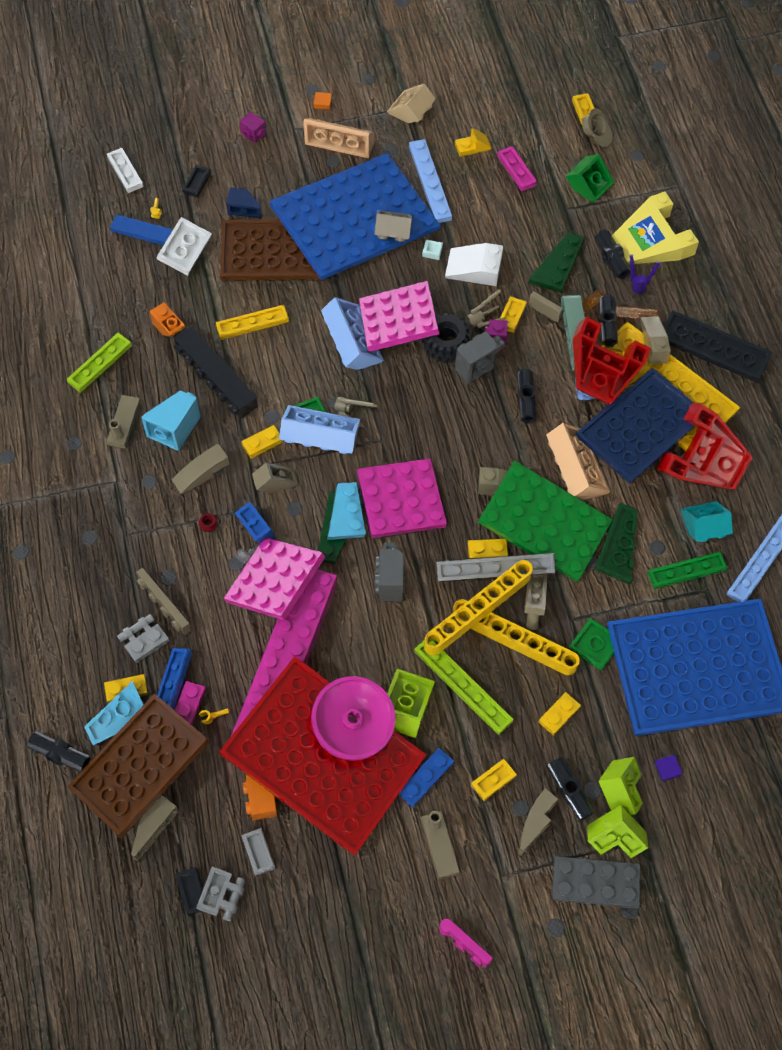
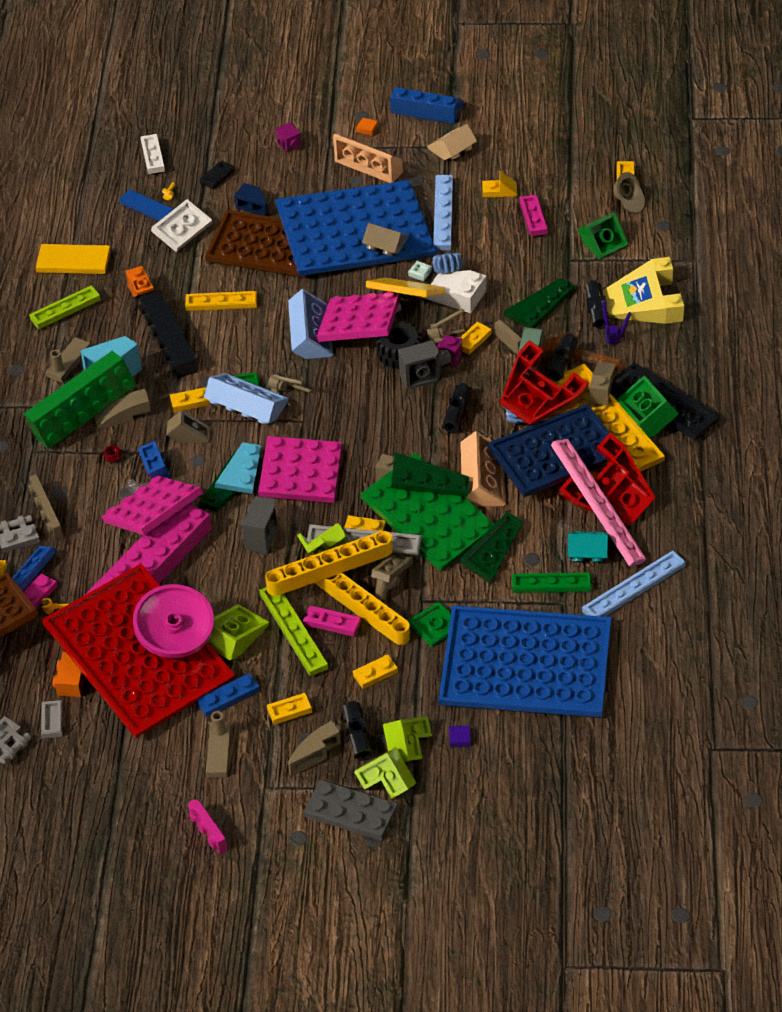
camera: 20 degrees right, 15 degrees down
(86, 304) = (73, 259): none -> yellow tile
(158, 472) = (80, 399): none -> green brick
(371, 68) = (425, 105): none -> blue slope
(431, 274) = (405, 287): none -> yellow tile
(458, 237) = (447, 262): none -> medium blue gear
(461, 579) = (327, 540): none -> lime panel
(497, 666) = (331, 621): none -> dark pink plate
(532, 487) = (422, 476): none -> dark green wing
(706, 357) = (647, 407): none -> green slope
(706, 476) = (598, 502): none -> bright pink tile

